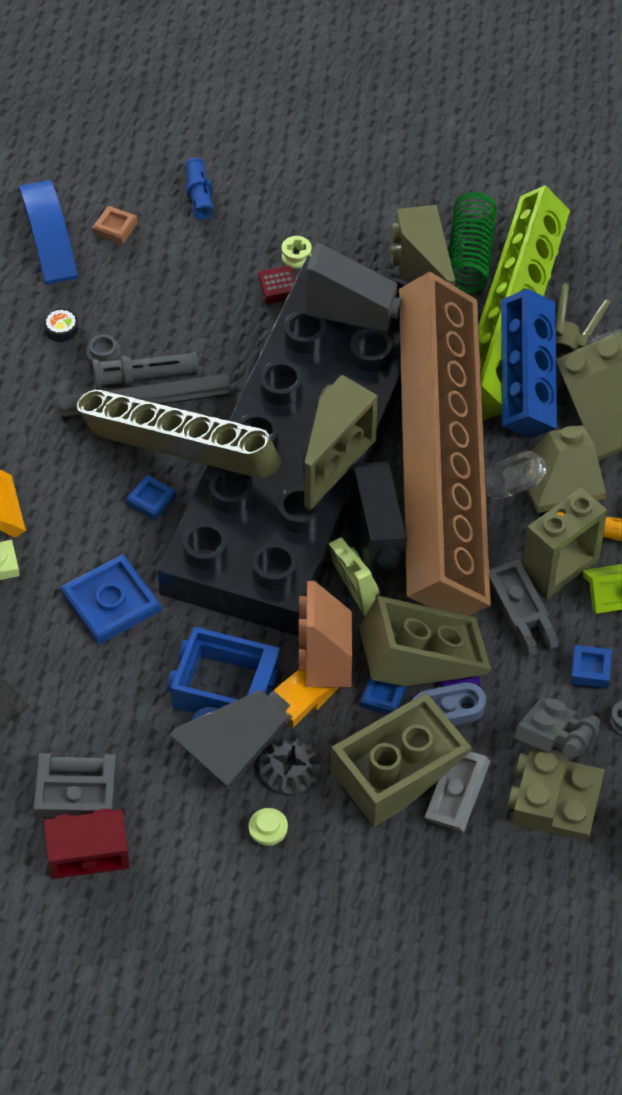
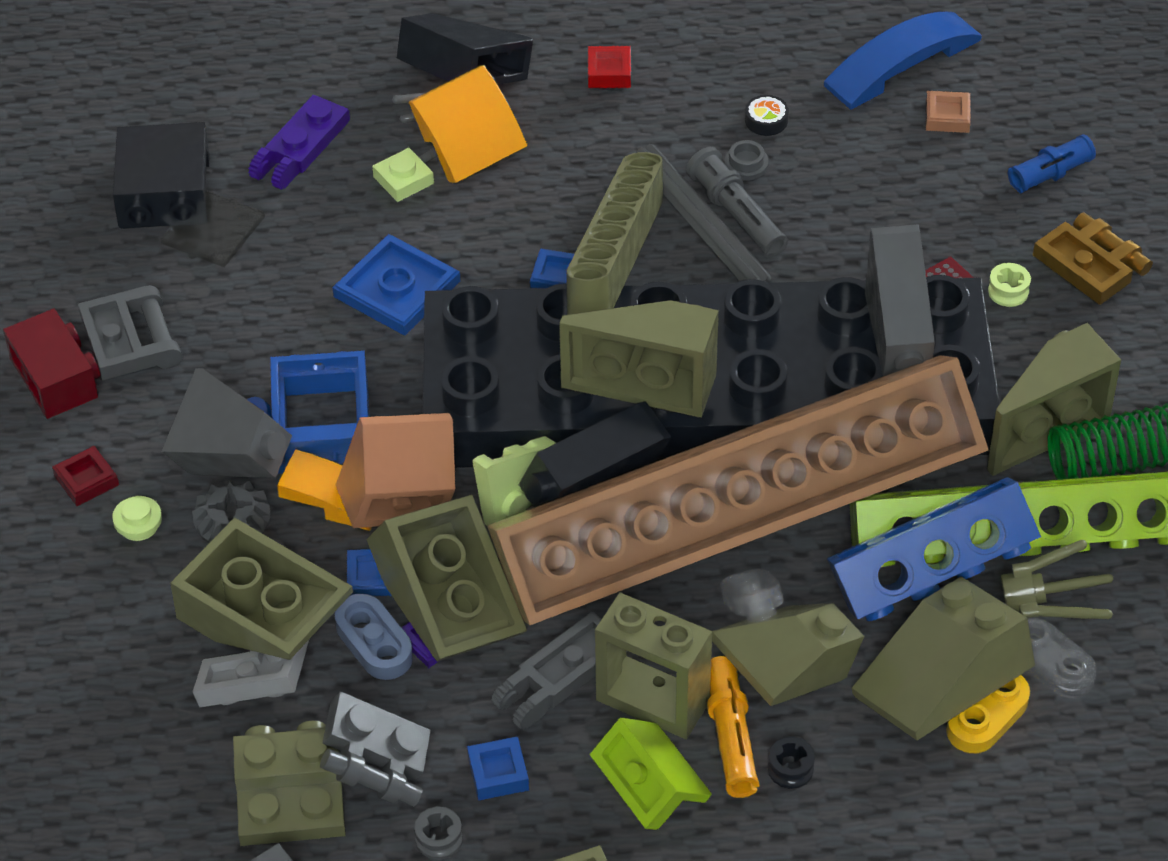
camera: 70 degrees right, 5 degrees down
(206, 853) = (85, 475): none -> dark red tile
(296, 200) = (1087, 265): none -> pearl gold plate

